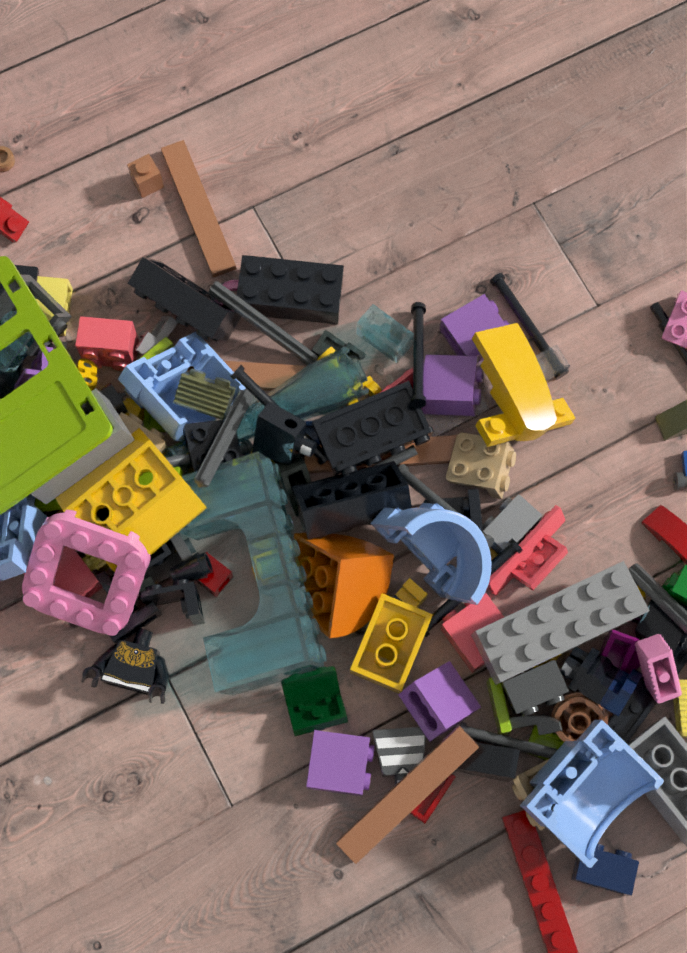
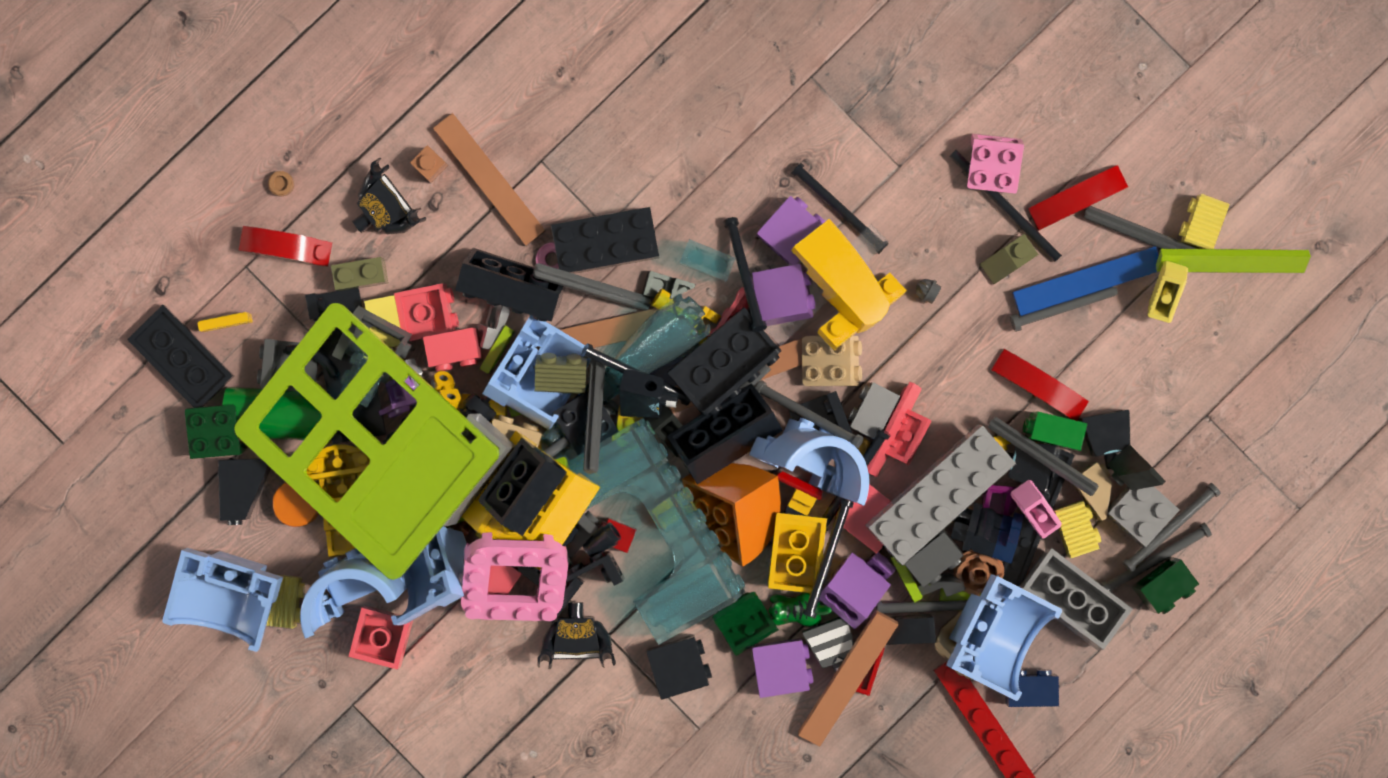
camera: 15 degrees left, 15 degrees up
(44, 253) = (360, 274): none -> olive brick
(89, 197) = (384, 204): none -> black torso
(94, 299) = (426, 311): none -> coral plate
(124, 475) = (522, 487): none -> black slope
(230, 729) = (679, 666): none -> black piece
(378, 707) = (789, 610): none -> green animal
(406, 571) = (799, 484): none -> red tile
(421, 656) = (827, 558): none -> black bar
(476, 684) = (881, 565): none -> medium lavender plate
(596, 424) = (927, 290): none -> dark grey plate

